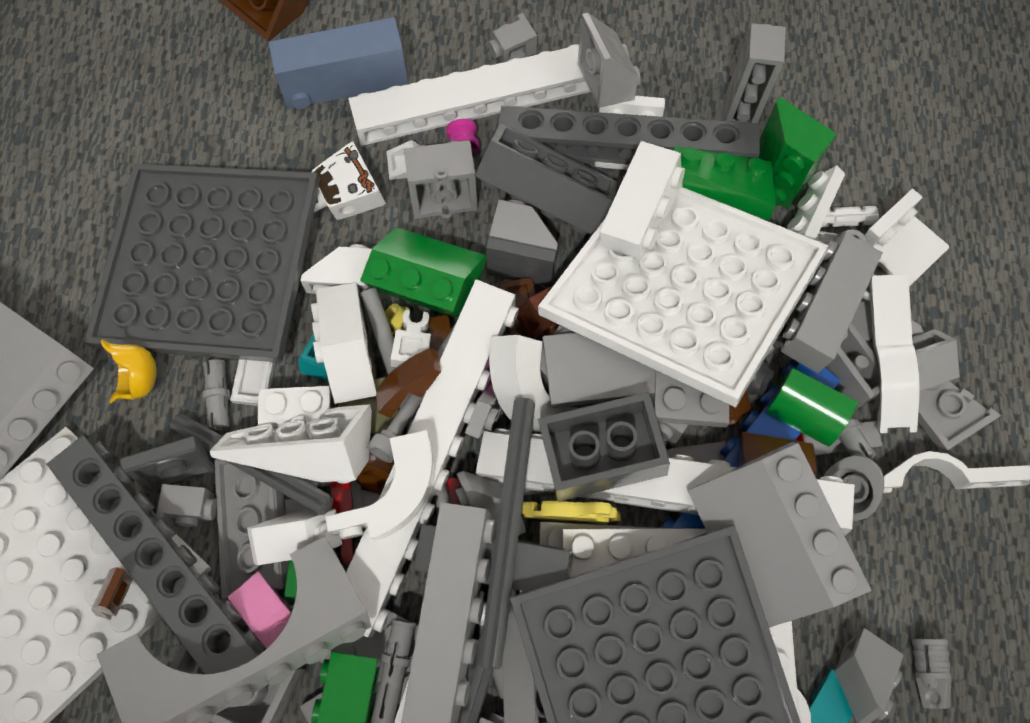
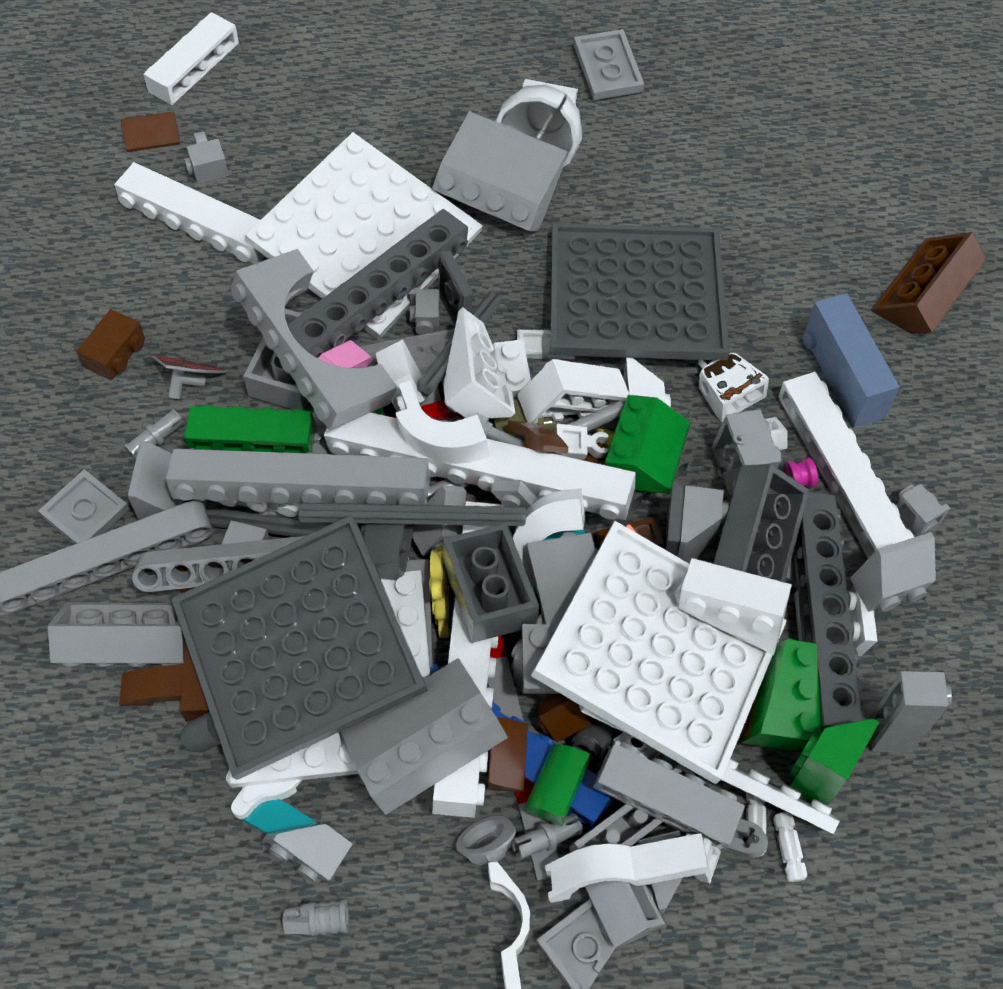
camera: 85 degrees right, 10 degrees down
(112, 593) = (346, 262): reddish brown slope -> none
(135, 370) = (534, 258): yellow hair -> none
(216, 395) = (520, 319): light grey pin -> none
(904, 240) = (768, 903): white bracket -> none

